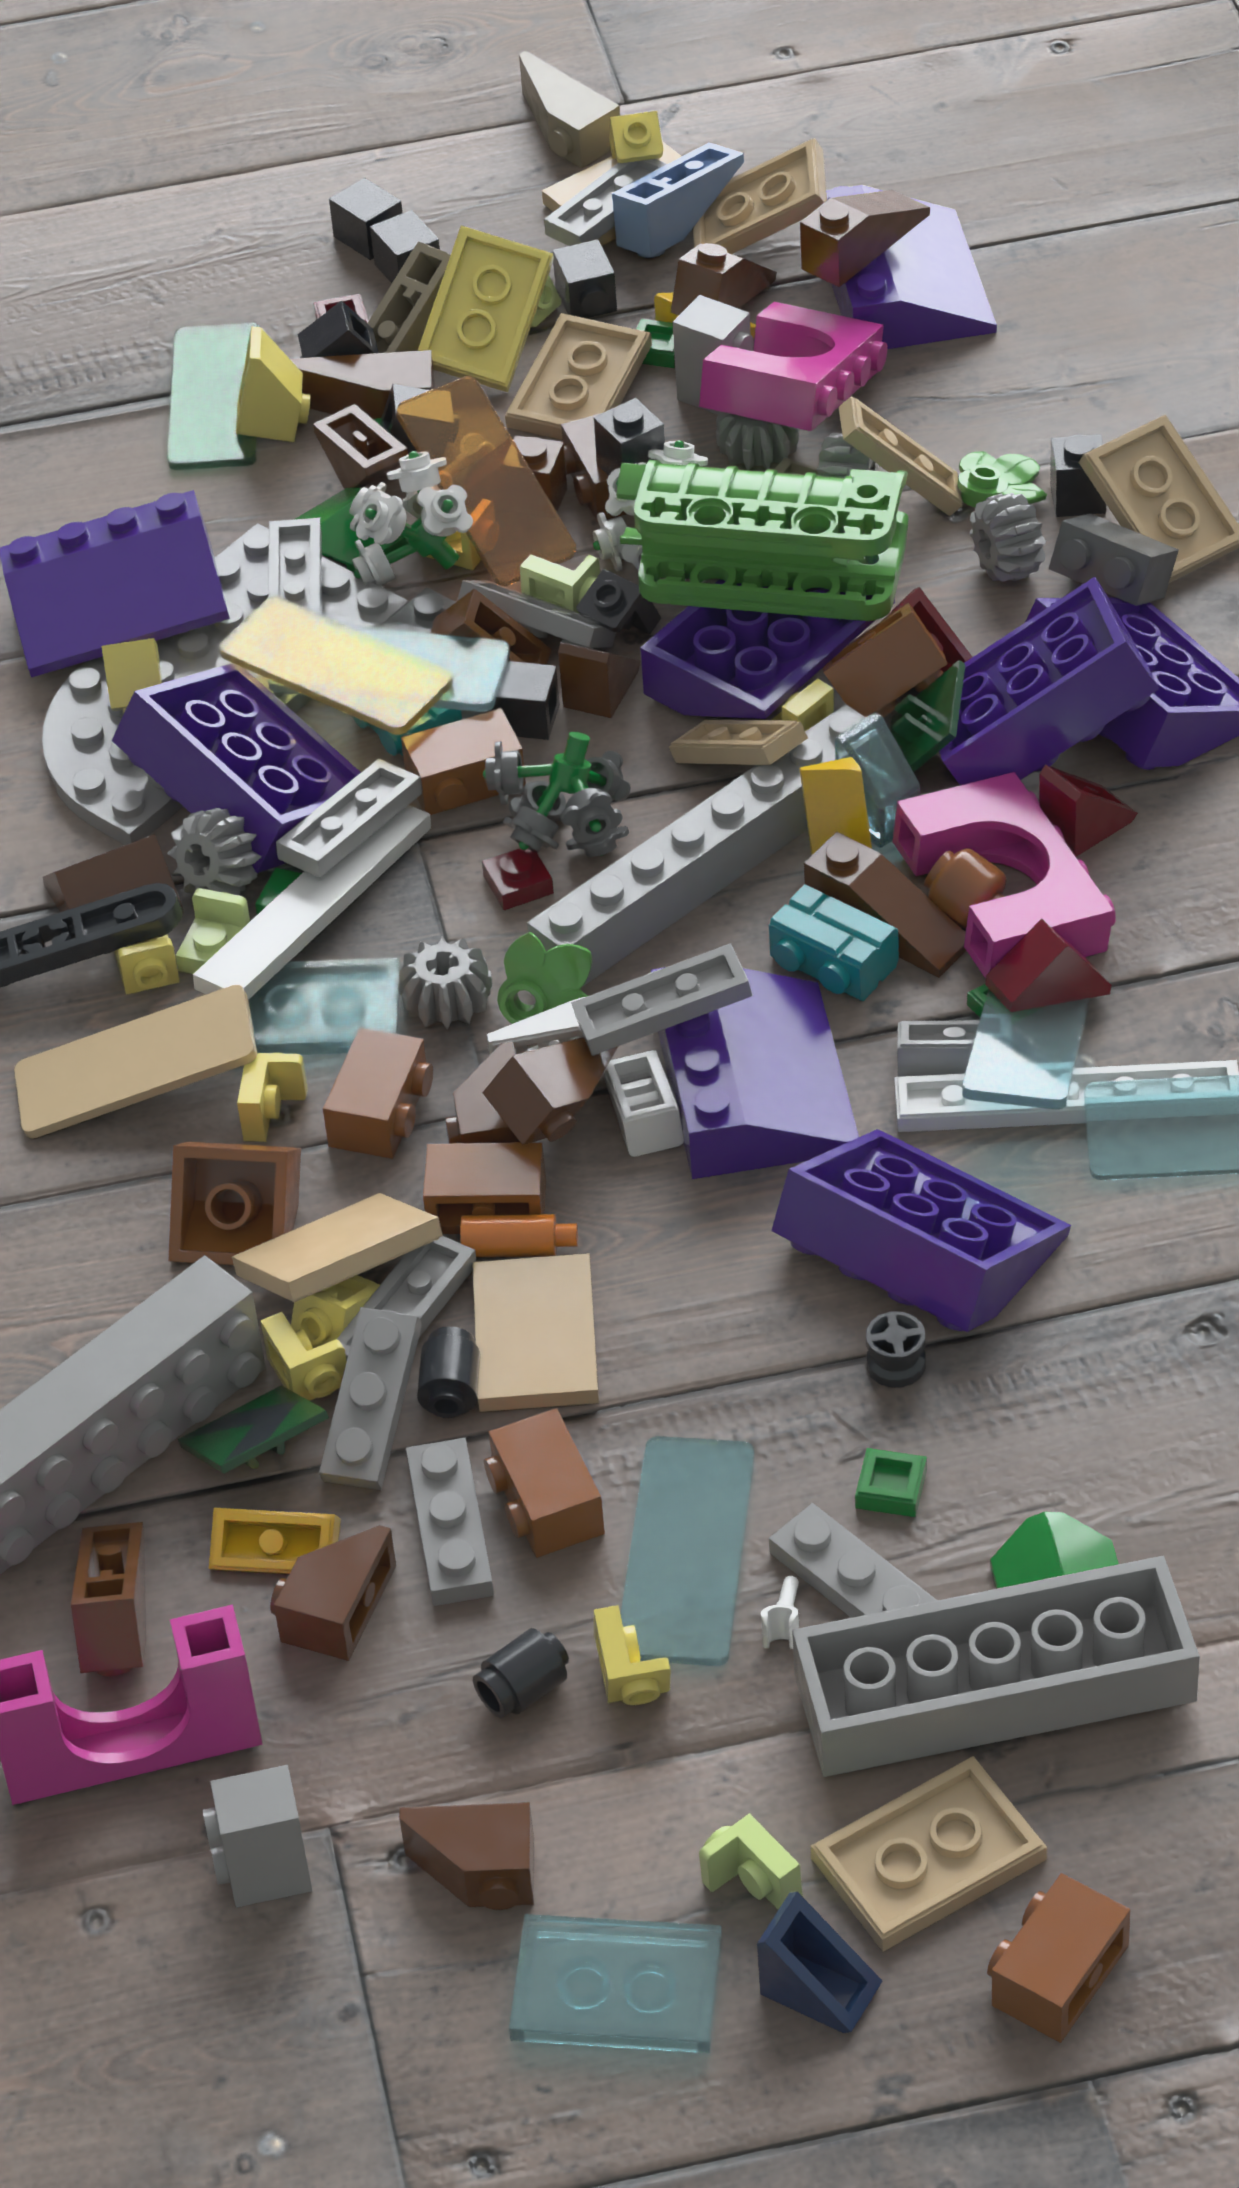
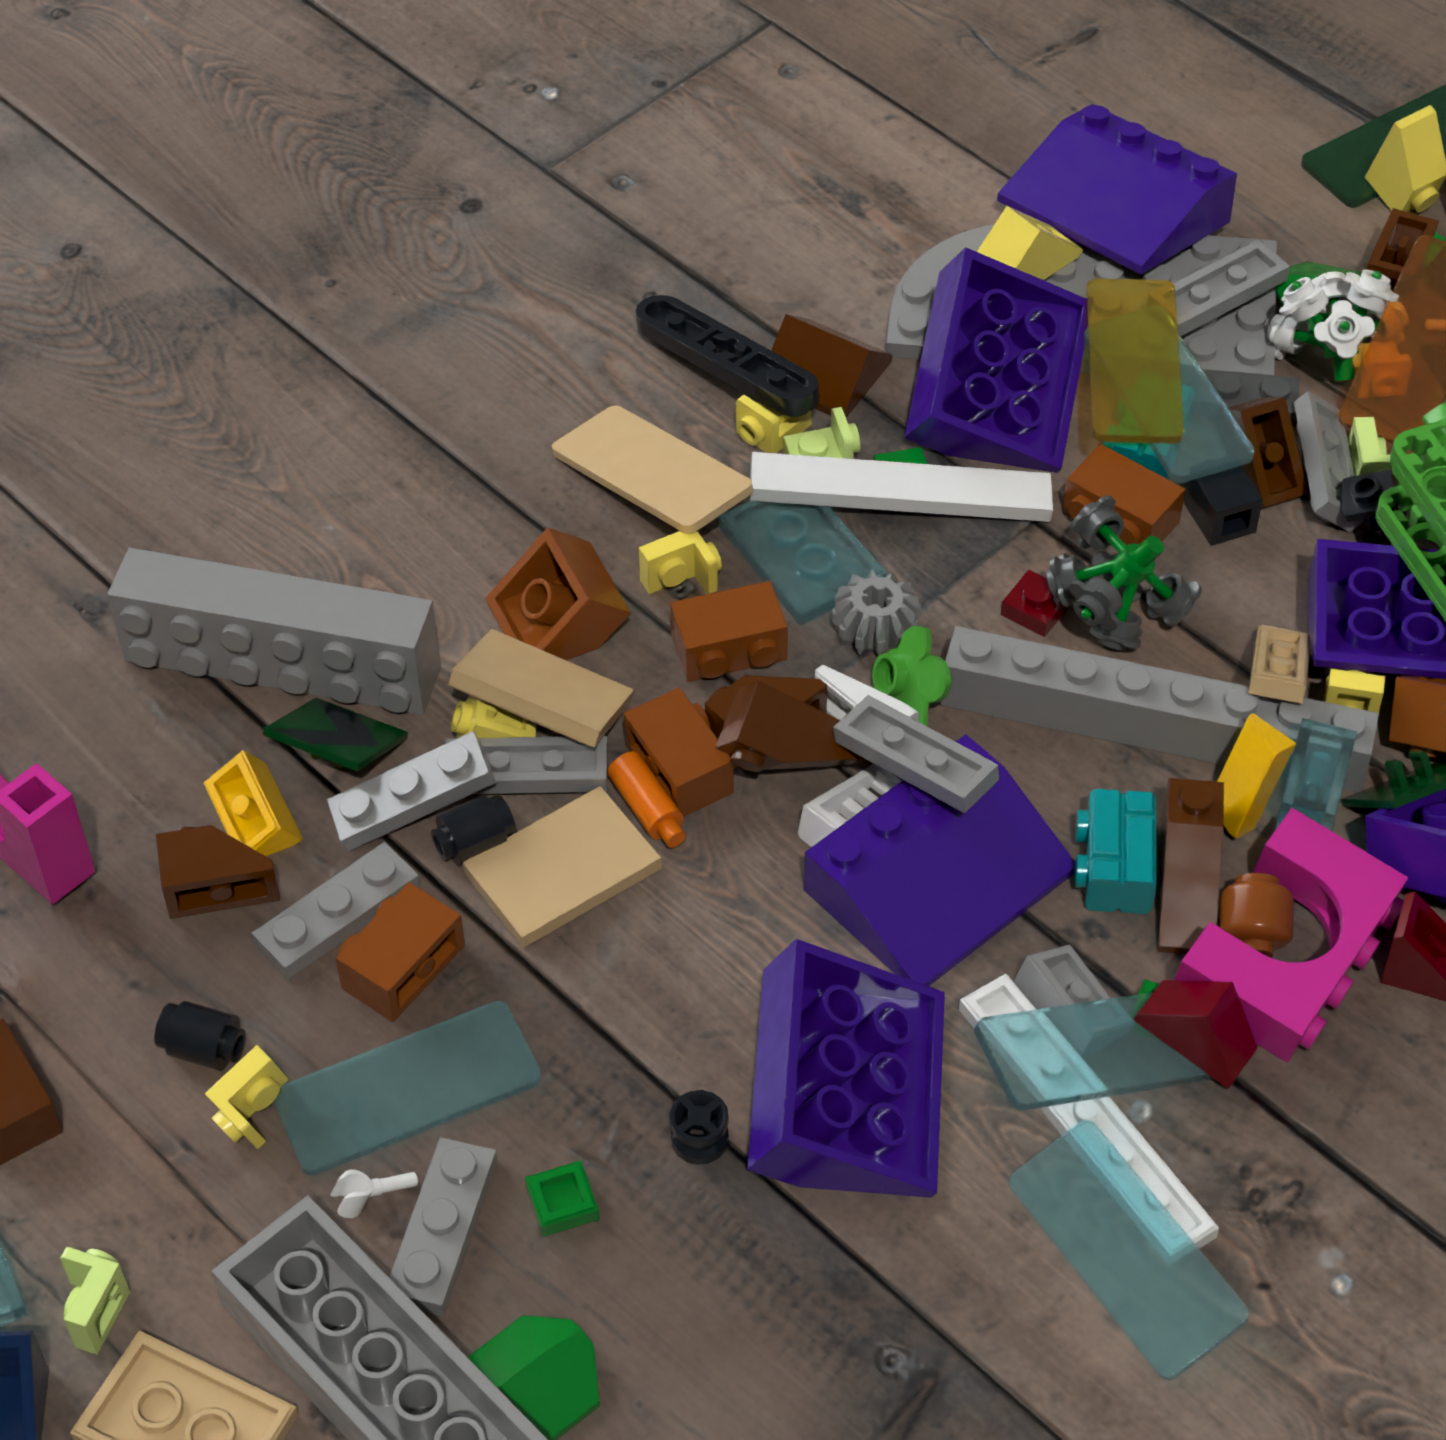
camera: 55 degrees right, 5 degrees up
(110, 1599) = (121, 734): reddish brown slope -> none
(214, 852) = (887, 398): light grey gear -> none
(299, 1366) = (423, 721): light yellow bracket -> none
(348, 818) = (991, 458): light grey plate -> none
(594, 679) = (1289, 531): reddish brown slope -> none

